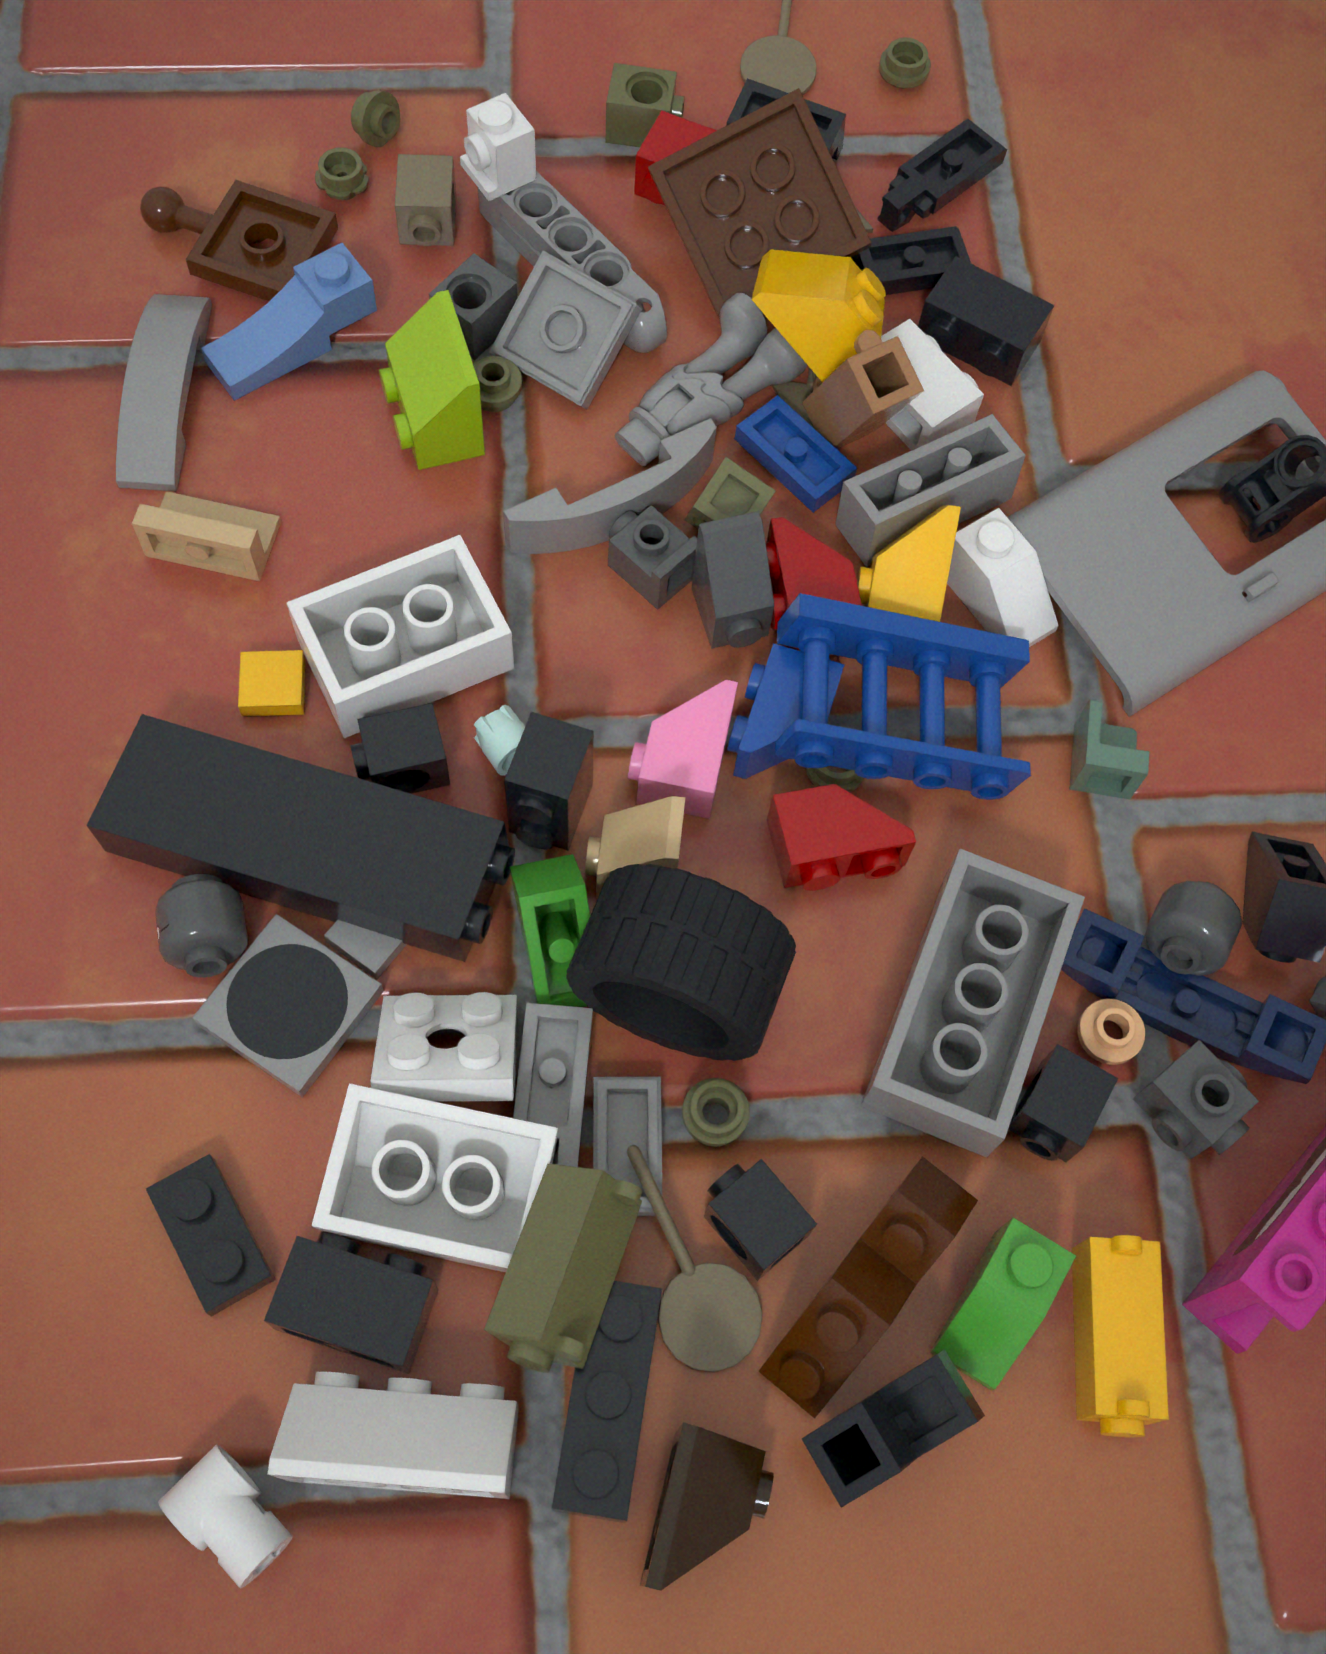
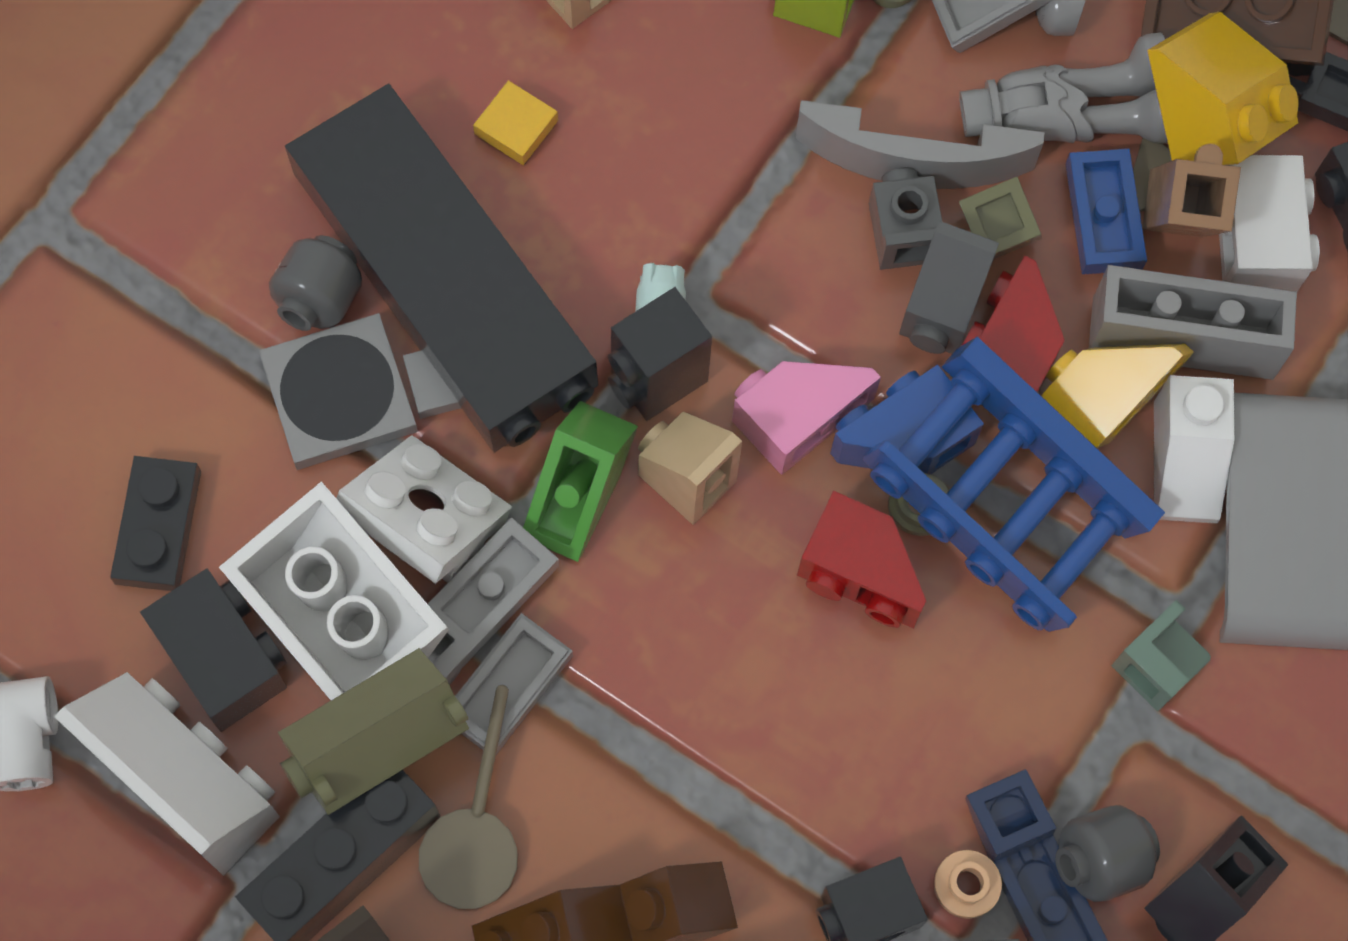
camera: 40 degrees right, 5 degrees up
(402, 634) = (638, 152): white brick -> none
(402, 750) = (570, 249): black brick -> none
(682, 962) = (642, 570): black tyre -> none
(719, 1092) = (590, 690): olive plate -> none
(757, 1217) = (557, 811): black brick -> none
(974, 1004) = (863, 772): light grey brick -> none

